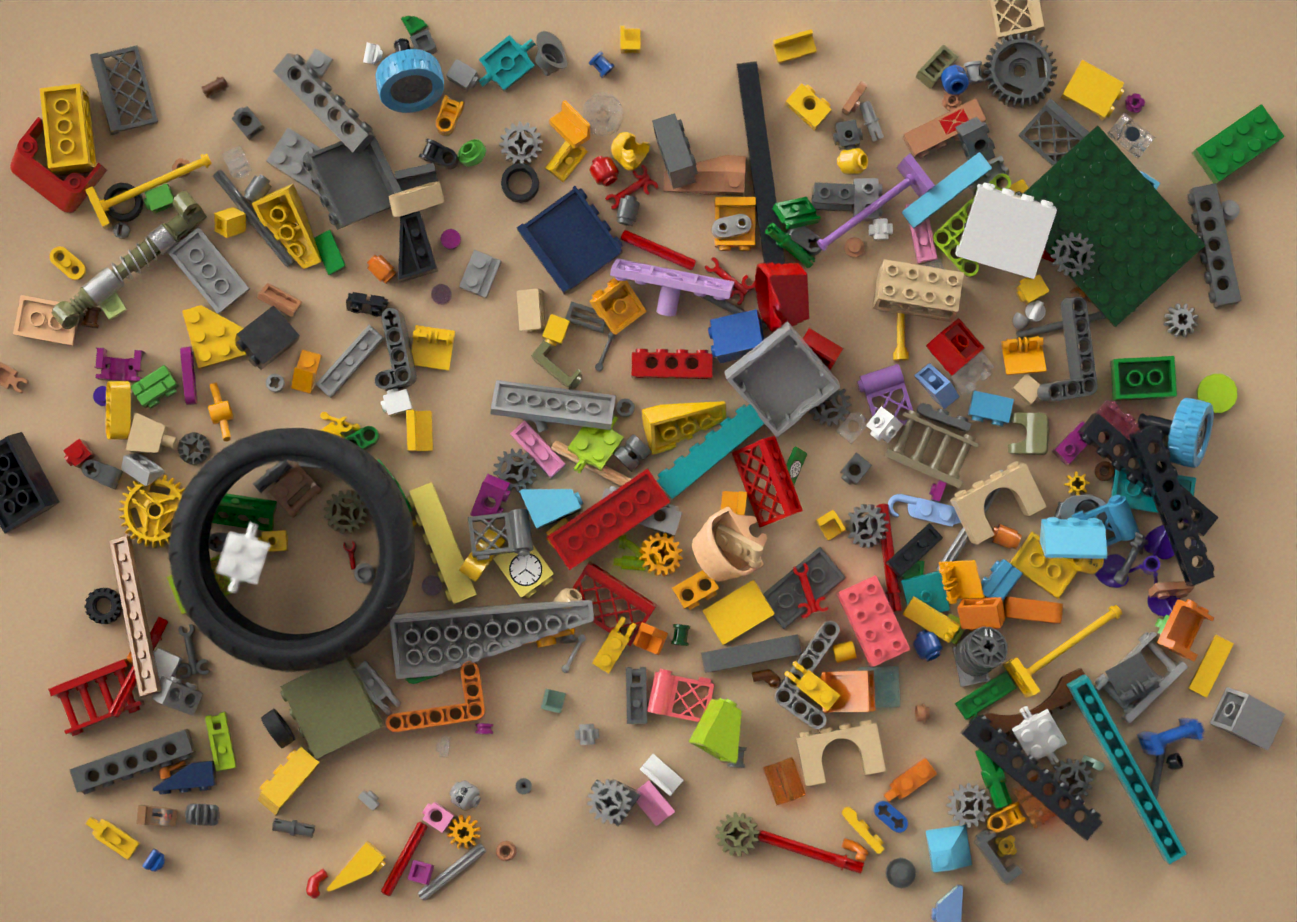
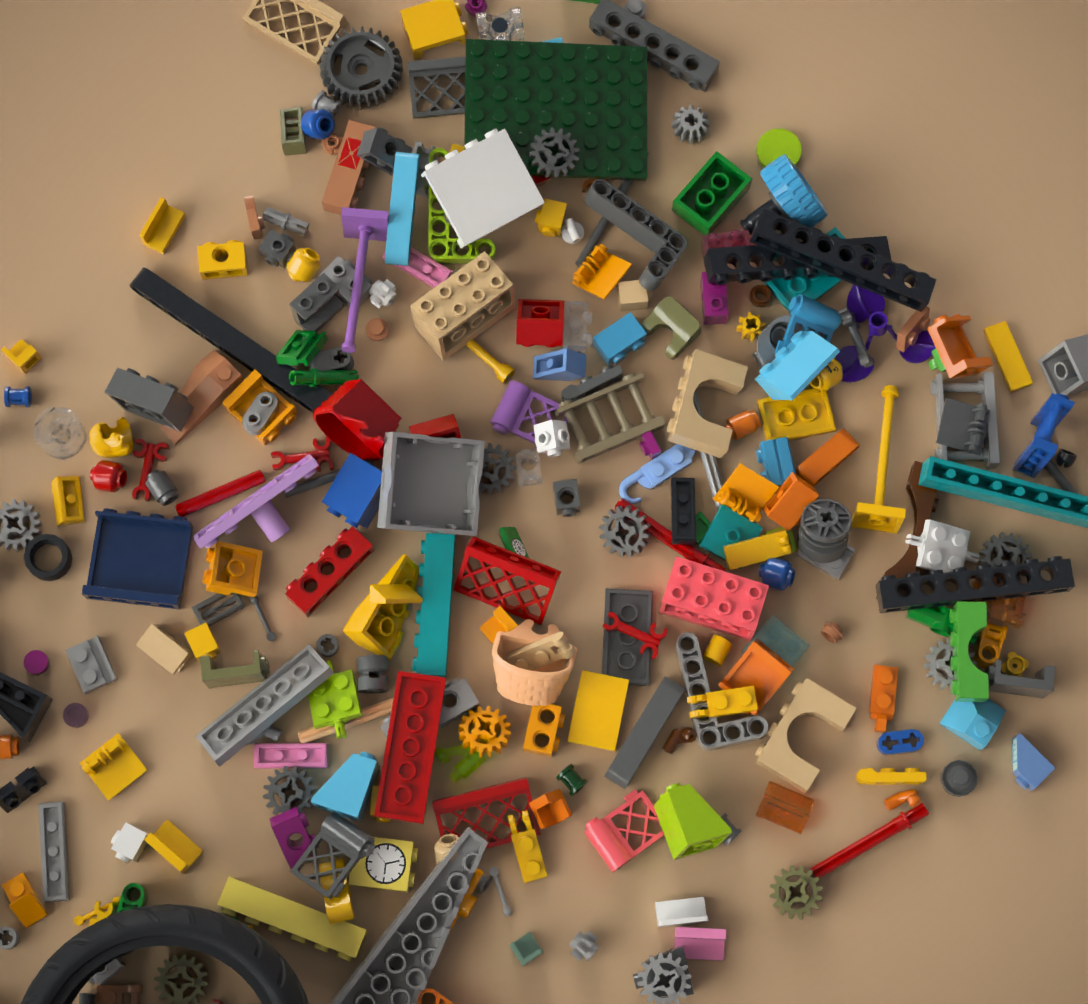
camera: 50 degrees left, 10 degrees down
(394, 350) = (82, 800): dark grey beam -> none
(432, 585) = (321, 964): tile -> none
(571, 125) = (42, 467): light orange panel -> none
(636, 696) = (590, 869): dark grey plate -> none
(692, 421) = (393, 594): none -> yellow slope
(830, 525) = (595, 561): yellow panel -> none
(965, 827) = (969, 681): none -> bright green arch
(985, 695) = (865, 565): green tile -> none
(1020, 321) = (569, 251): light grey hinge -> none
(1093, 763) = (1007, 526): sand green tile -> none

